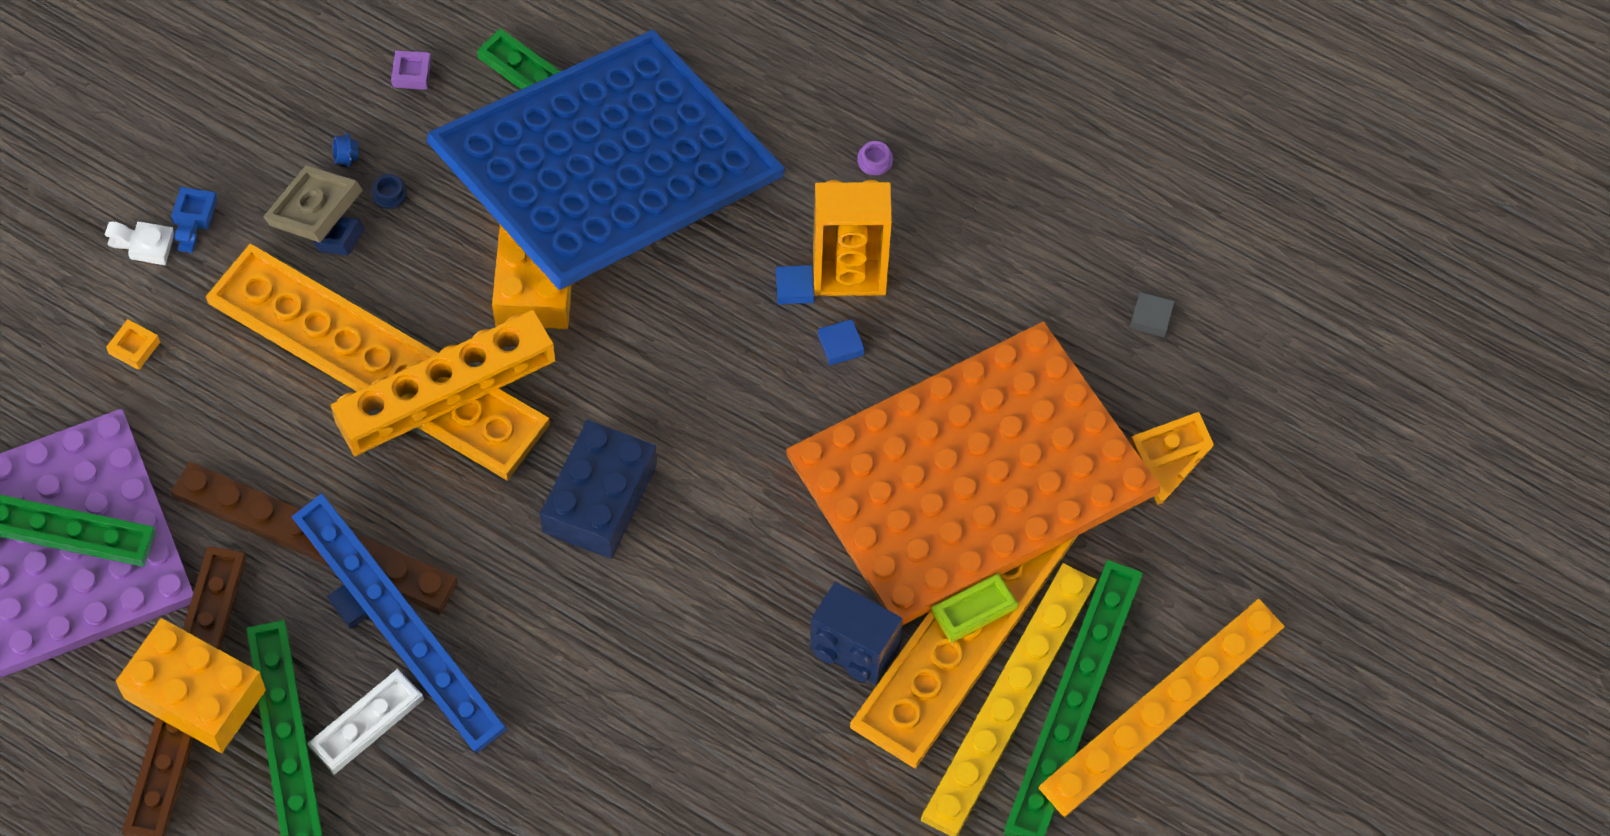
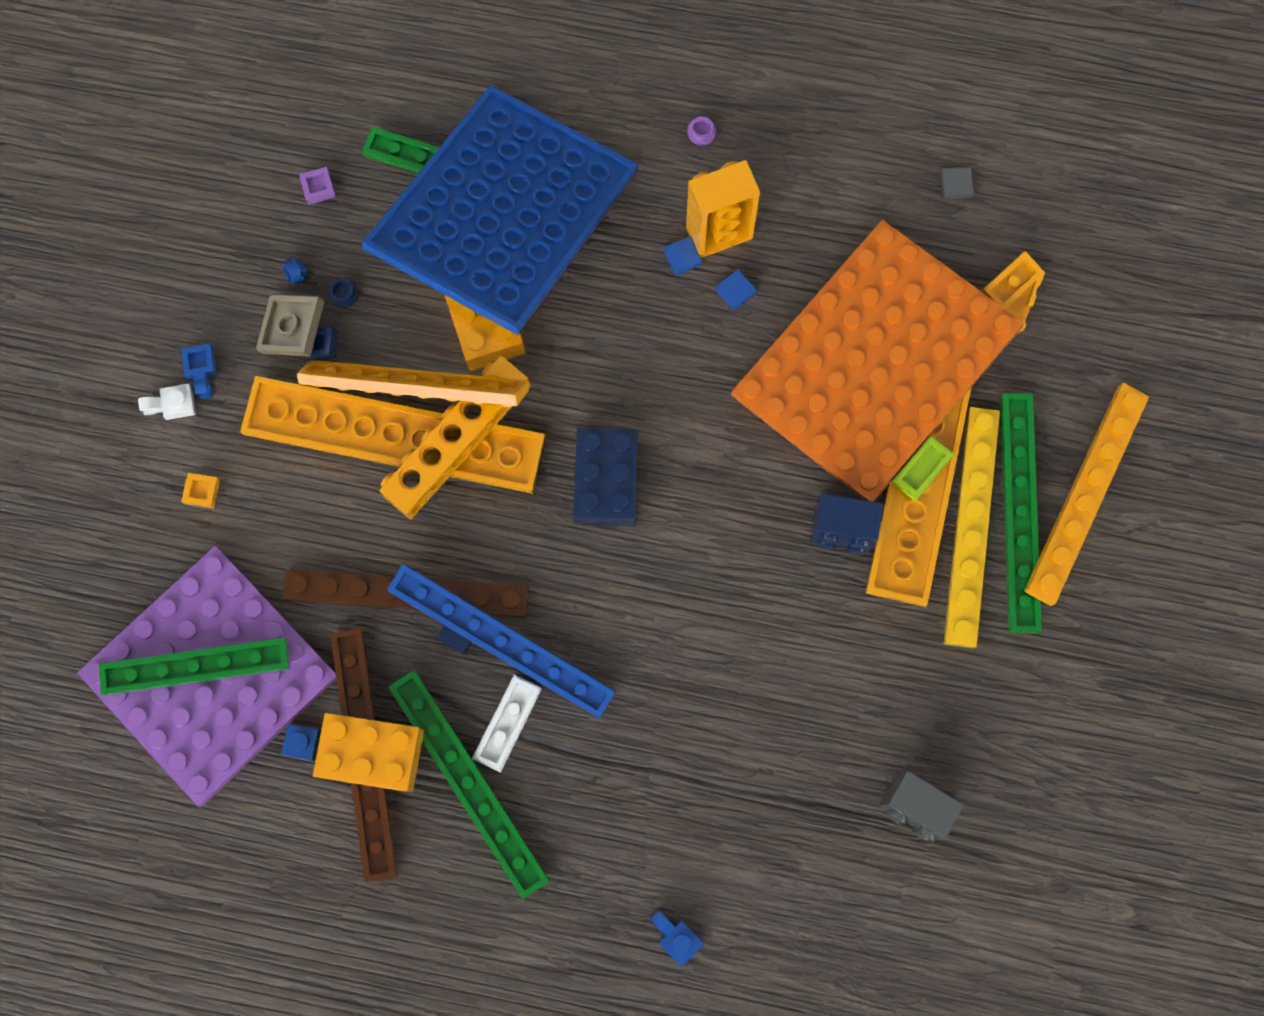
camera: 15 degrees left, 15 degrees up
(115, 653) = (301, 742): none -> blue plate
(430, 308) = (414, 382): none -> light orange plate

